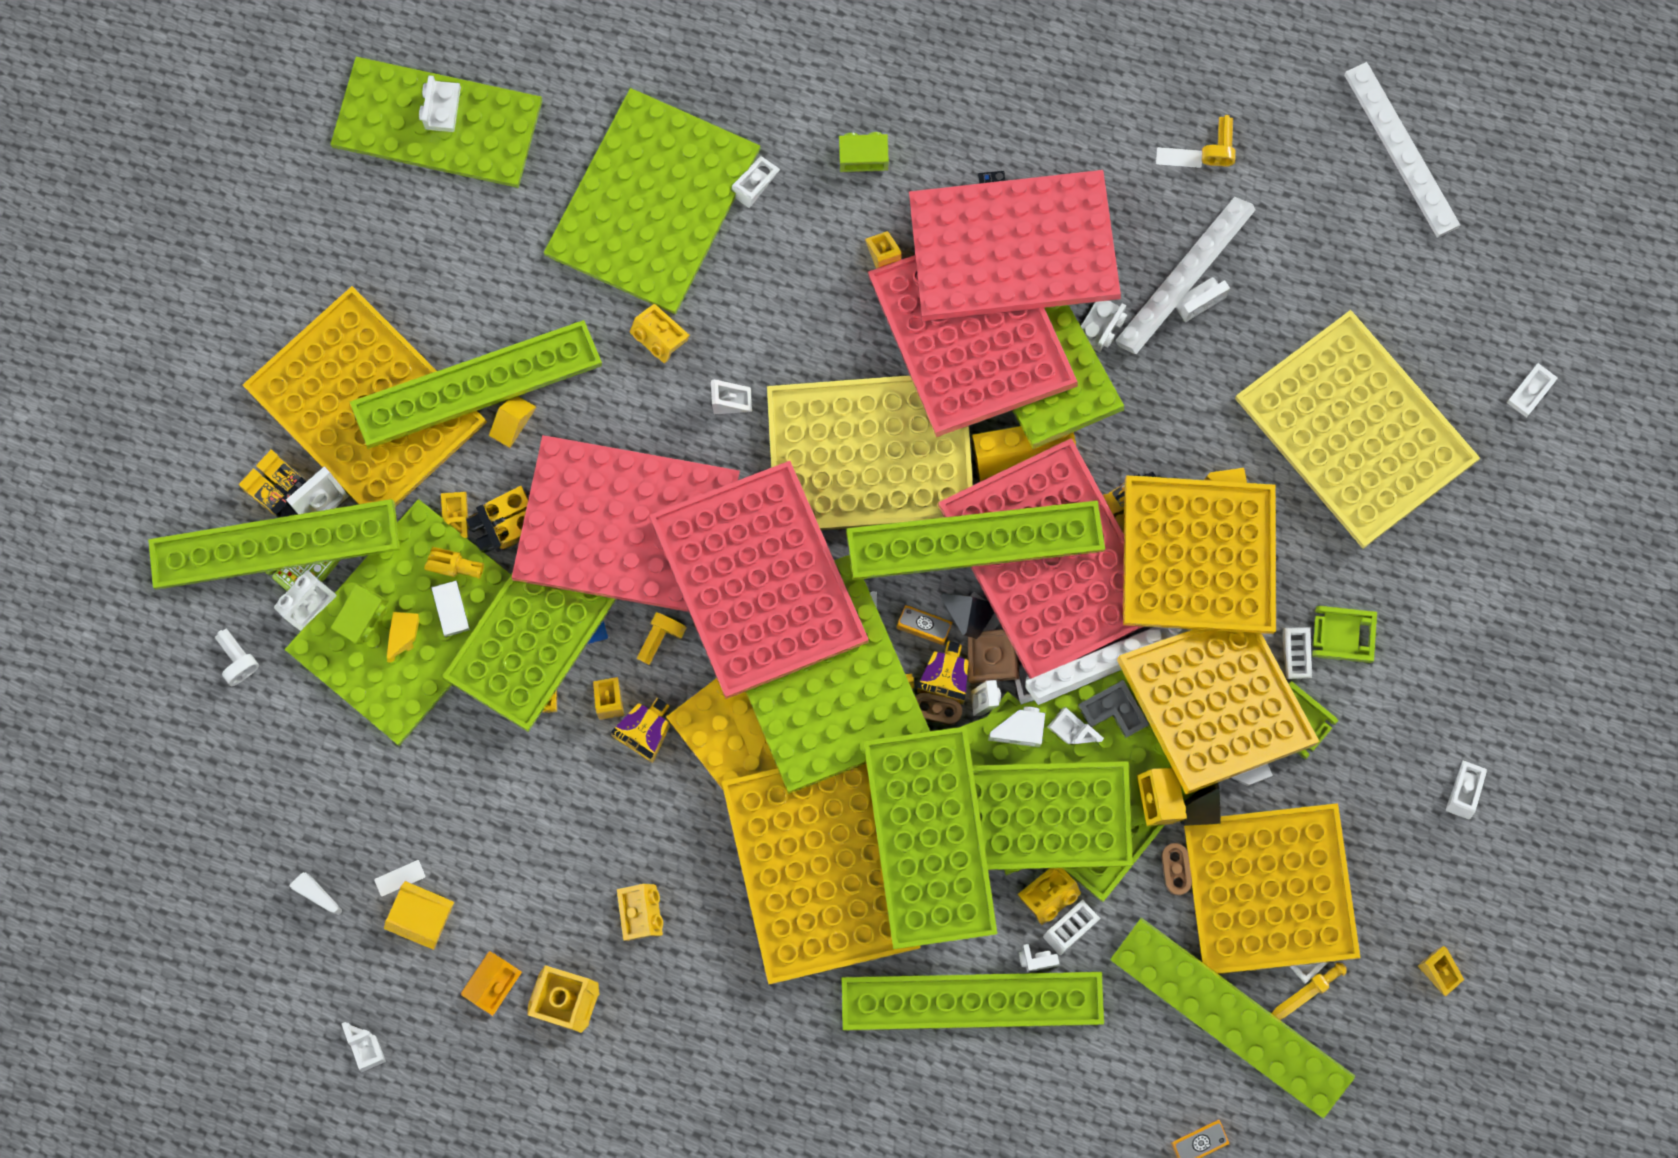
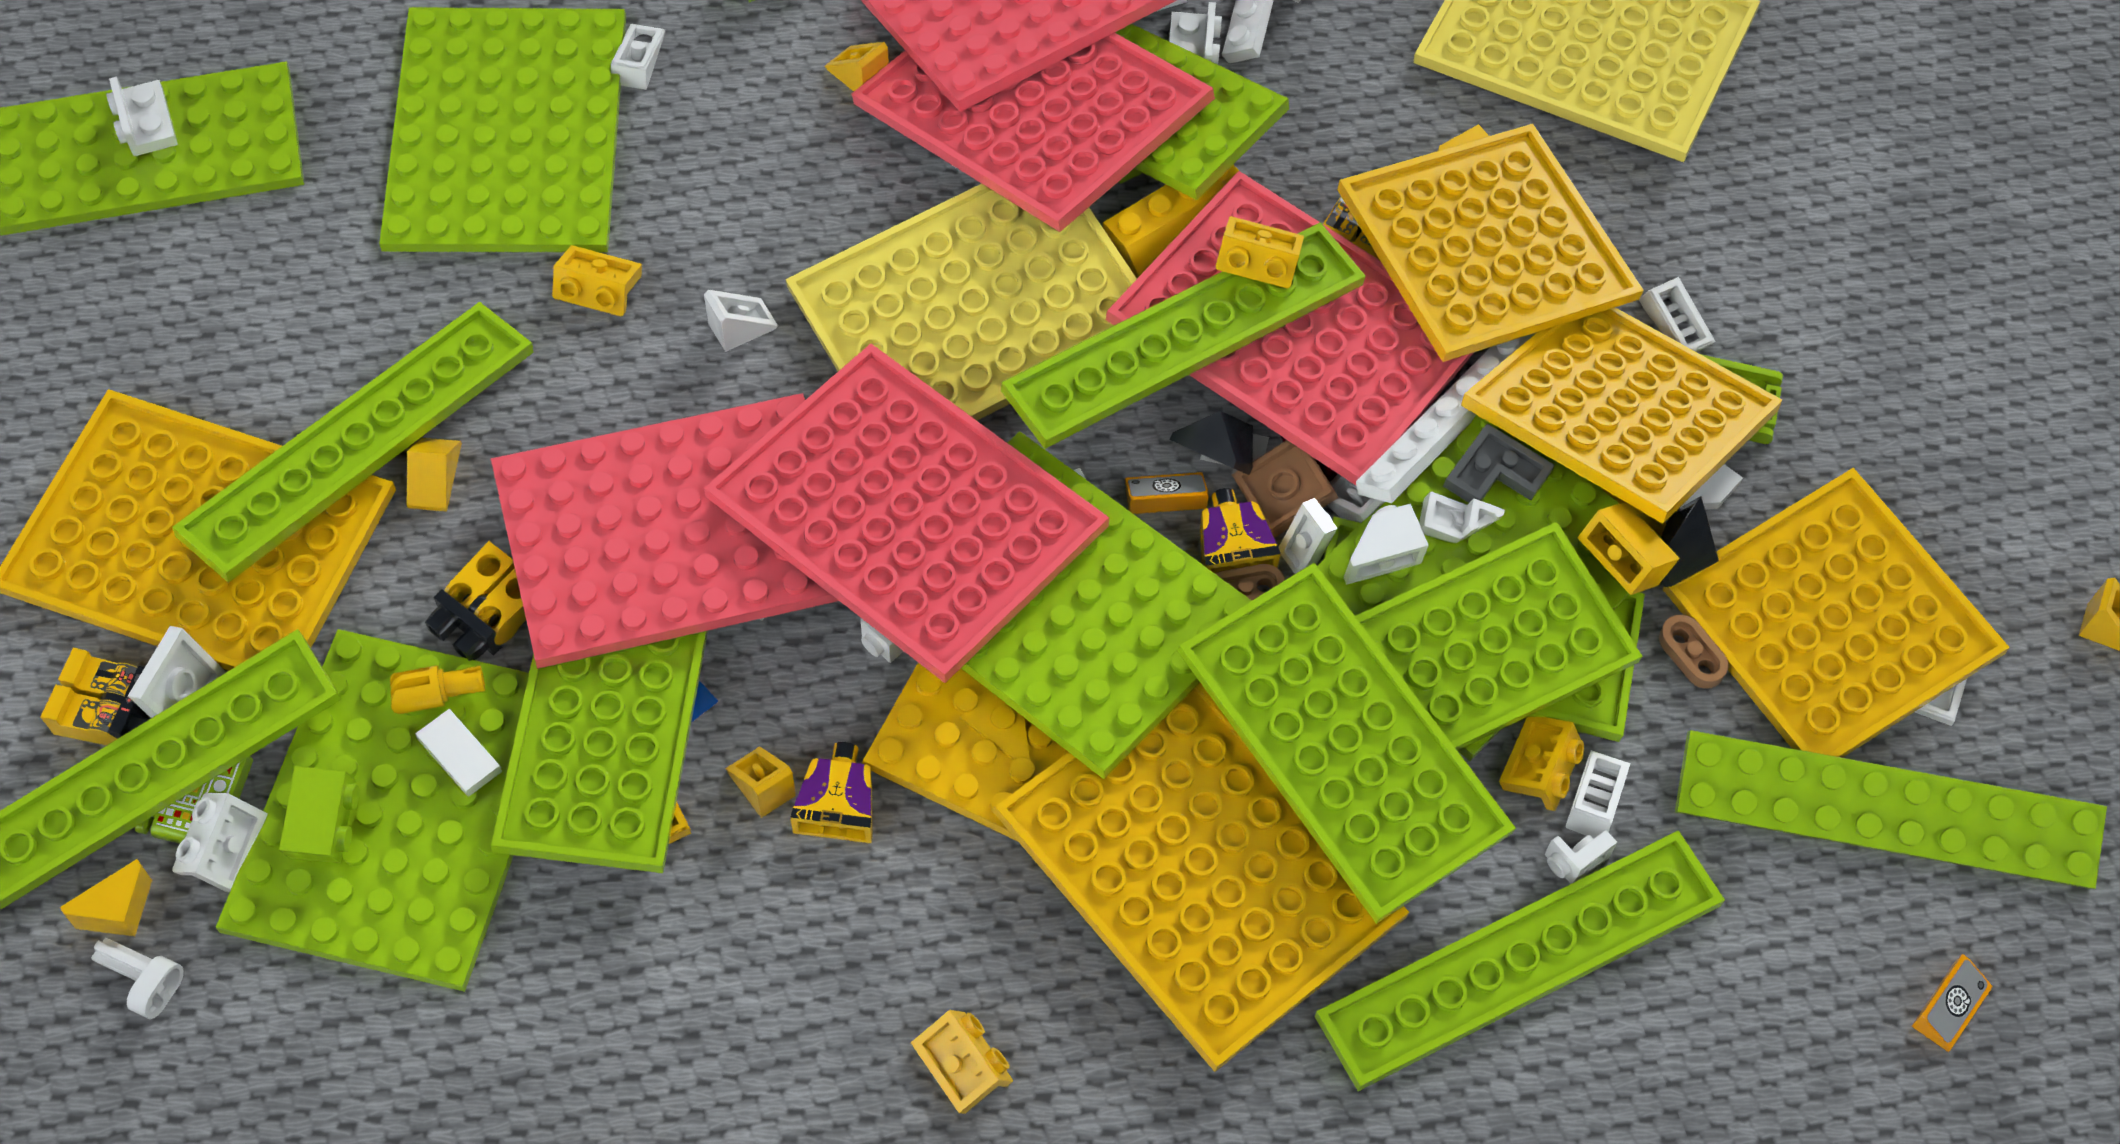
camera: 30 degrees left, 15 degrees down
(237, 611) = (113, 903): none -> yellow slope
(402, 633) = (398, 818): yellow slope -> none
(456, 511) = (402, 622): yellow slope -> none
(661, 625) = (790, 645): yellow piece -> none
(1045, 507) = (1259, 252): none -> yellow bracket
(1318, 984) = (1971, 715): yellow sword -> none
(1339, 634) = (1715, 276): lime container -> none
(1466, 790) = (1996, 393): white slope -> none

